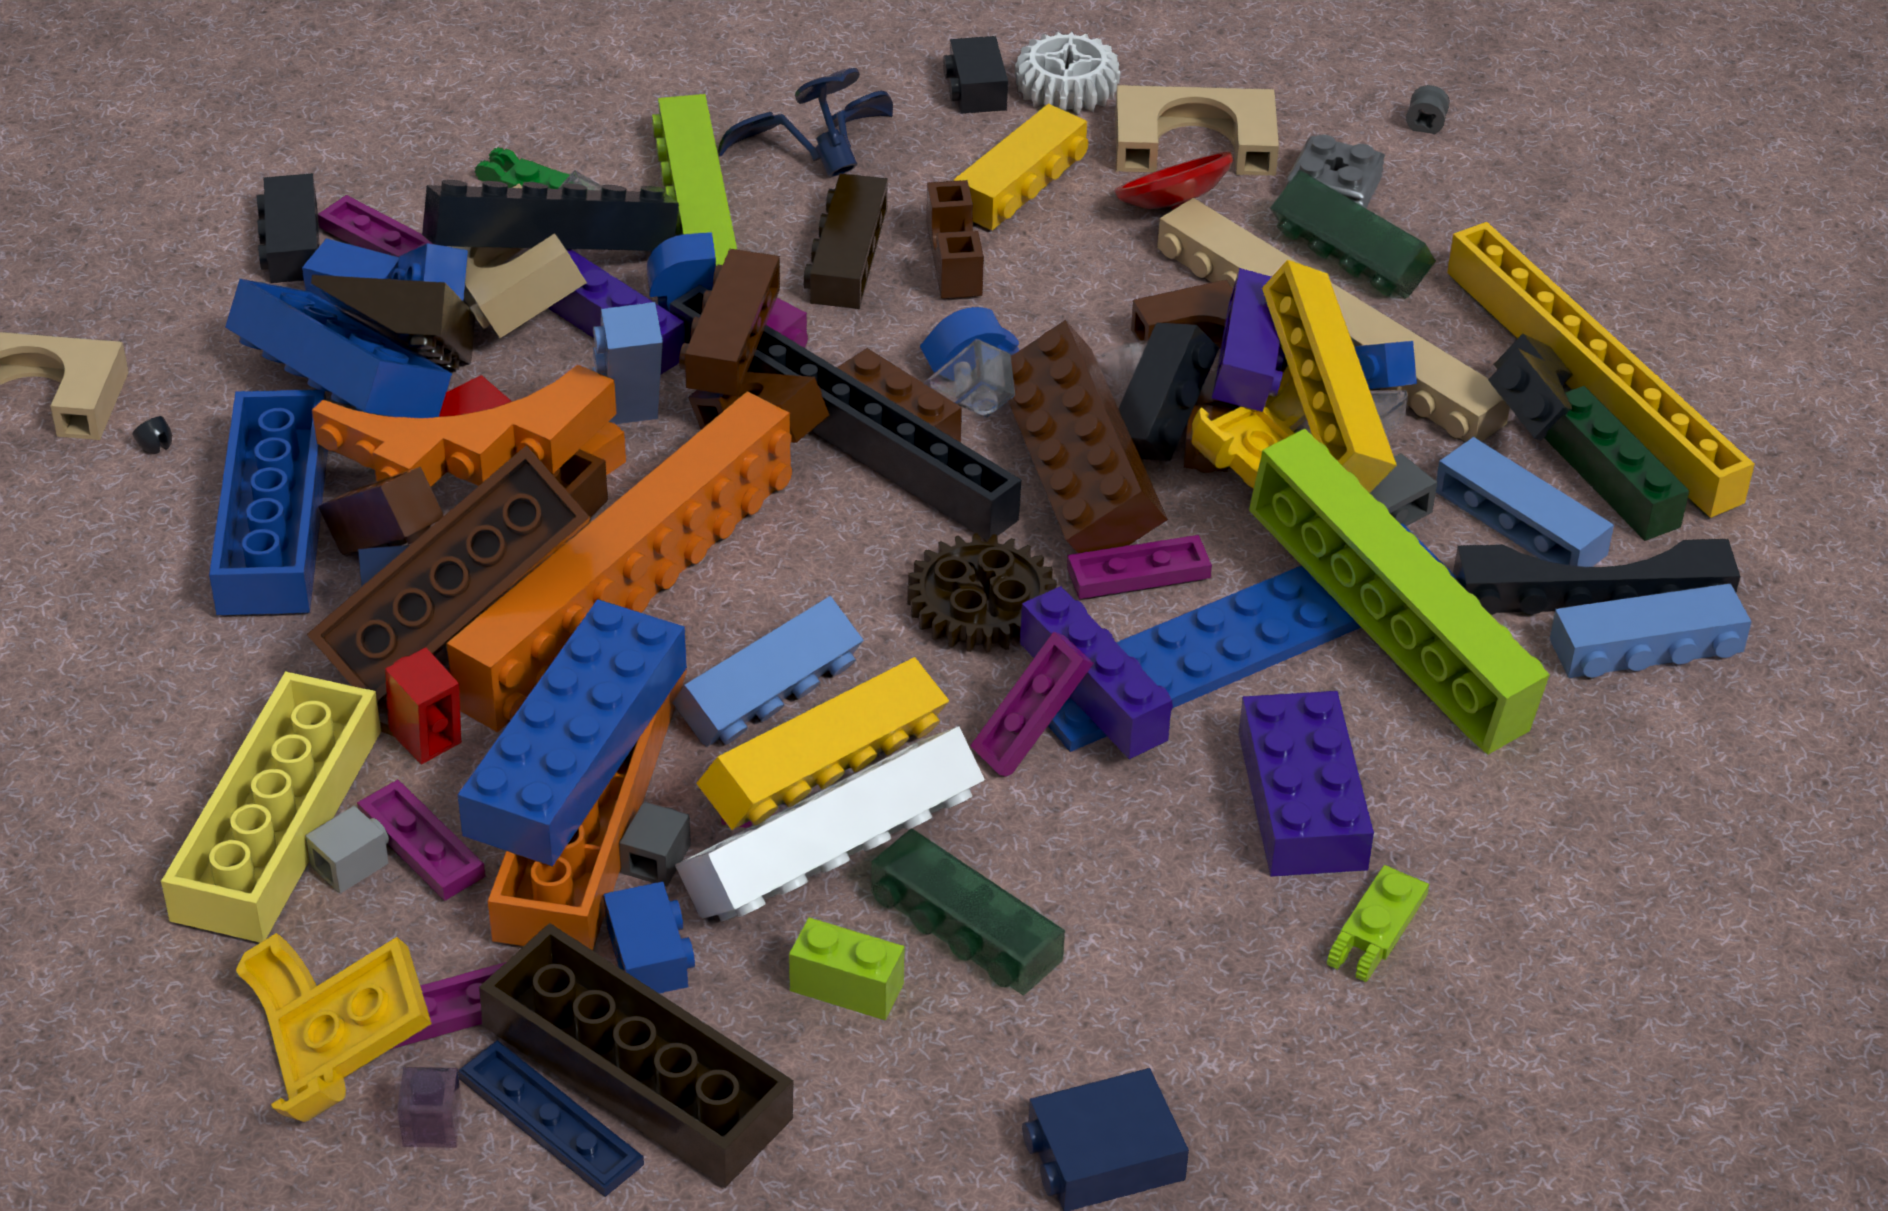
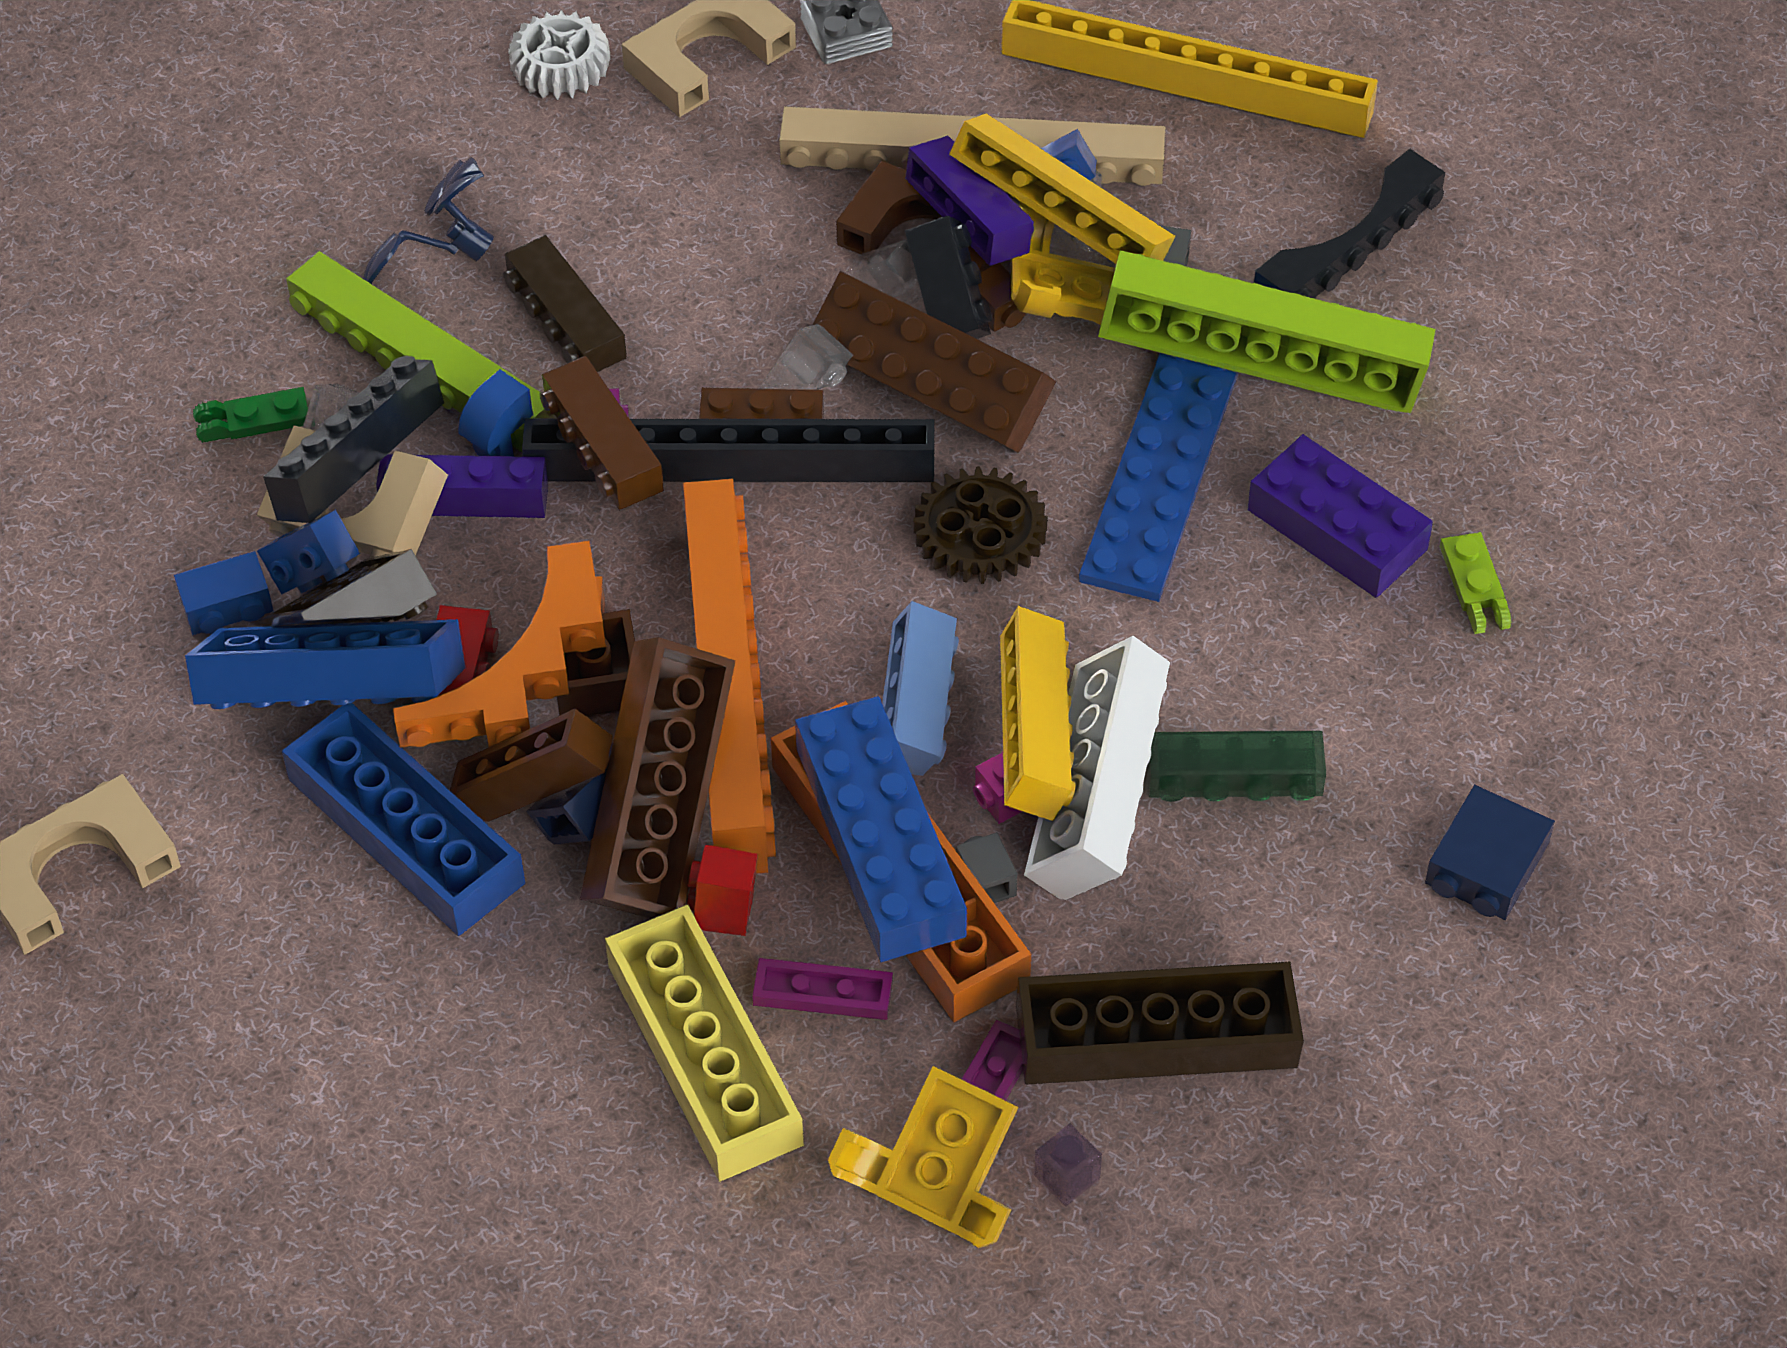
camera: 40 degrees left, 10 degrees up
(153, 434) = (229, 832): black hinge -> none
(287, 226) = (117, 585): black brick -> none
(347, 848) = (787, 1032): light grey brick -> none
(368, 228) = (188, 543): magenta plate -> none
(551, 1118) = (1138, 1110): dark blue tile -> none
(630, 354) = (577, 513): medium blue brick -> none
(647, 937) = (1063, 939): blue brick -> none
(789, 392) = (702, 463): reddish brown arch -> none
(846, 968) = (1212, 861): lime brick -> none
(953, 242) = (669, 271): reddish brown arch -> none
(960, 330) = (757, 335): blue brick -> none
(976, 75) = (495, 99): black brick -> none
(1024, 164) = (623, 160): yellow brick -> none
(1031, 704) = (1128, 582): magenta plate -> none
(1115, 689) = (1140, 531): dark purple brick -> none
(1139, 566) = (1057, 430): magenta plate -> none
(1176, 183) = (751, 97): red dish -> none
(1352, 235) = (918, 66): clear green brick -> none
(1522, 506) = (1254, 211): medium blue brick -> none
(1531, 384) = (1181, 112): black arch -> none
(1618, 466) = (1274, 136): dark green brick -> none
(1650, 631) = (1423, 252): medium blue brick -> none

